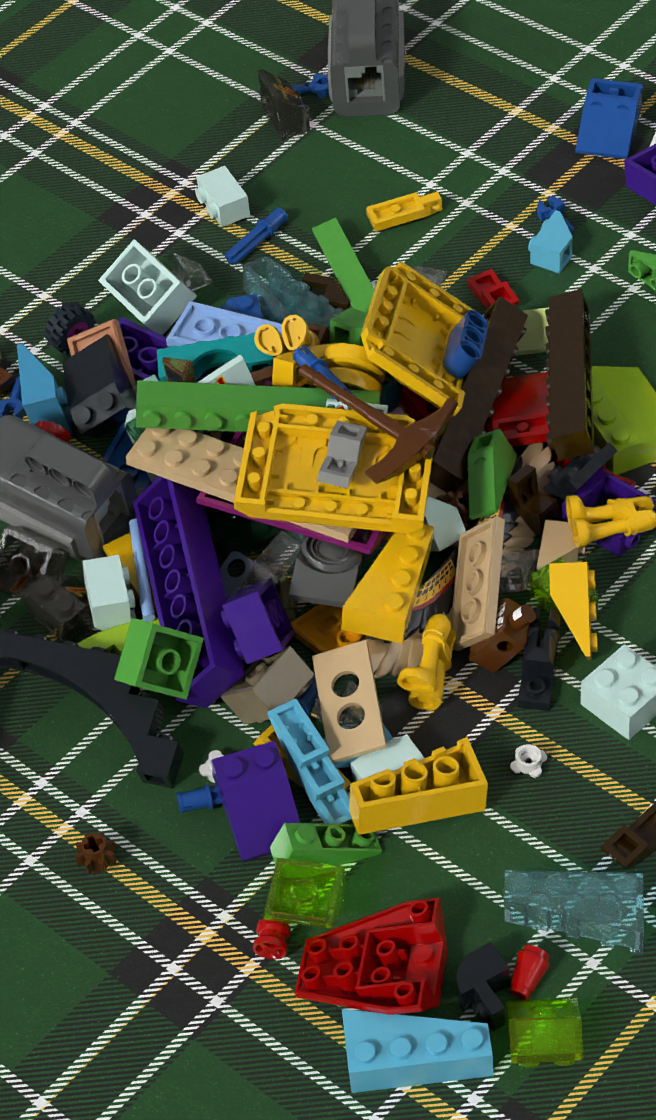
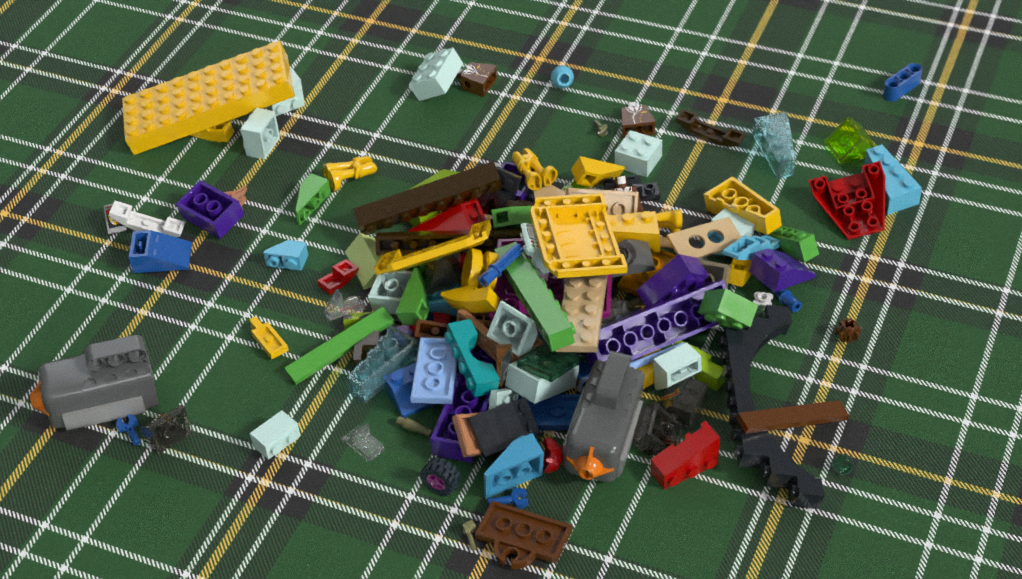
camera: 110 degrees left, 5 degrees down
(147, 288) = (390, 440): light aqua brick -> none
(264, 229) = (299, 407): blue axle -> none
(271, 939) = (858, 245): red wheel -> none
(294, 335) = (461, 302): yellow piece -> none
(306, 893) = (832, 232): clear neon green slope -> none
(342, 454) = (565, 227): light grey slope -> none
(411, 443) = (550, 199): reddish brown piece -> none
(465, 344) = (425, 238): blue beam -> none
(478, 979) = (837, 167): black brick -> none
(528, 753) = (696, 183): white plate -> none
(529, 970) = (821, 154): red cone -> none
(555, 204) = (250, 269): blue bar -> none

